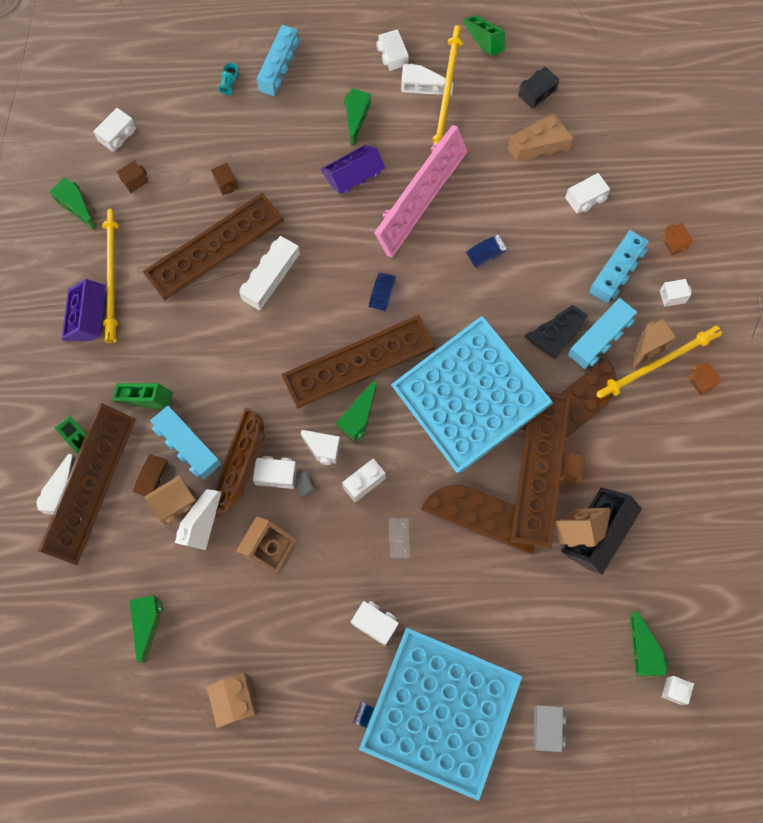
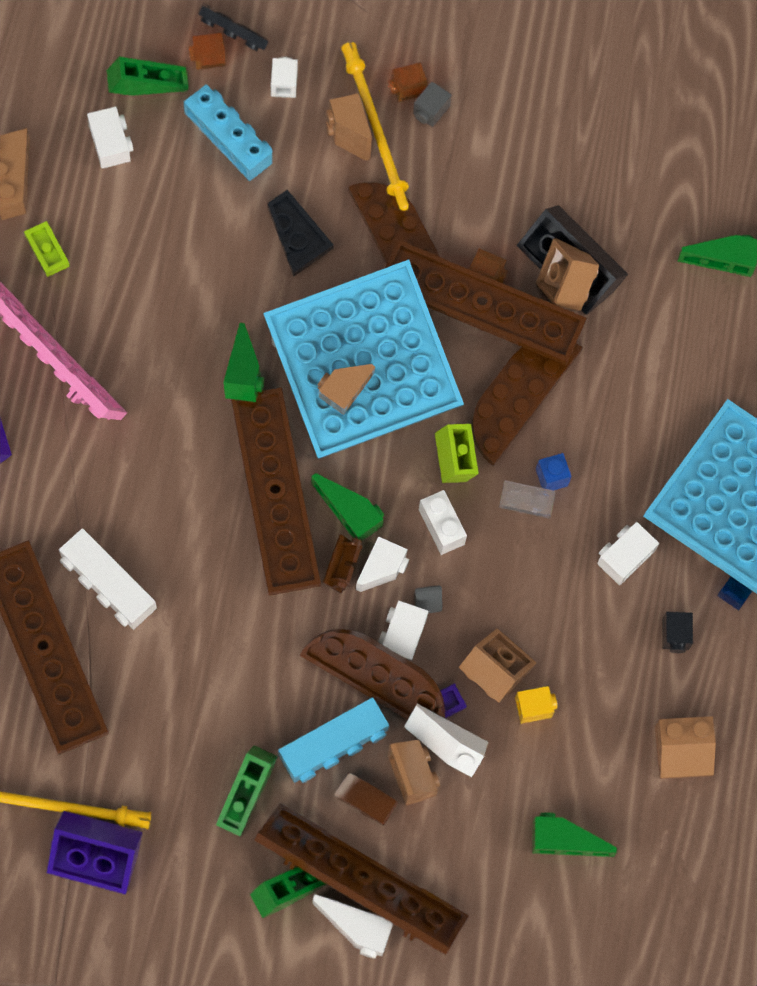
camera: 85 degrees left, 0 degrees up
(234, 517) = (452, 700): none -> dark purple tile
(241, 579) = (535, 704): none -> yellow brick
(316, 418) = (340, 569): none -> reddish brown hinge
(320, 675) = (677, 631): none -> black brick
(382, 291) = (178, 436): clear blue slope -> none
(418, 477) = (456, 453): none -> lime brick
(423, 552) = (553, 472): none -> blue brick
(437, 316) = (243, 370): none -> green slope
(437, 381) = (344, 386): none -> medium nougat slope
(486, 249) = (155, 288): clear blue slope -> none
(493, 177) = (46, 249): none -> lime plate
(602, 333) = (319, 180): medium azure brick -> none
(641, 205) = (144, 77): none -> green slope
(692, 398) = (431, 104): none -> dark grey brick
(702, 241) = (231, 29): none -> black wing

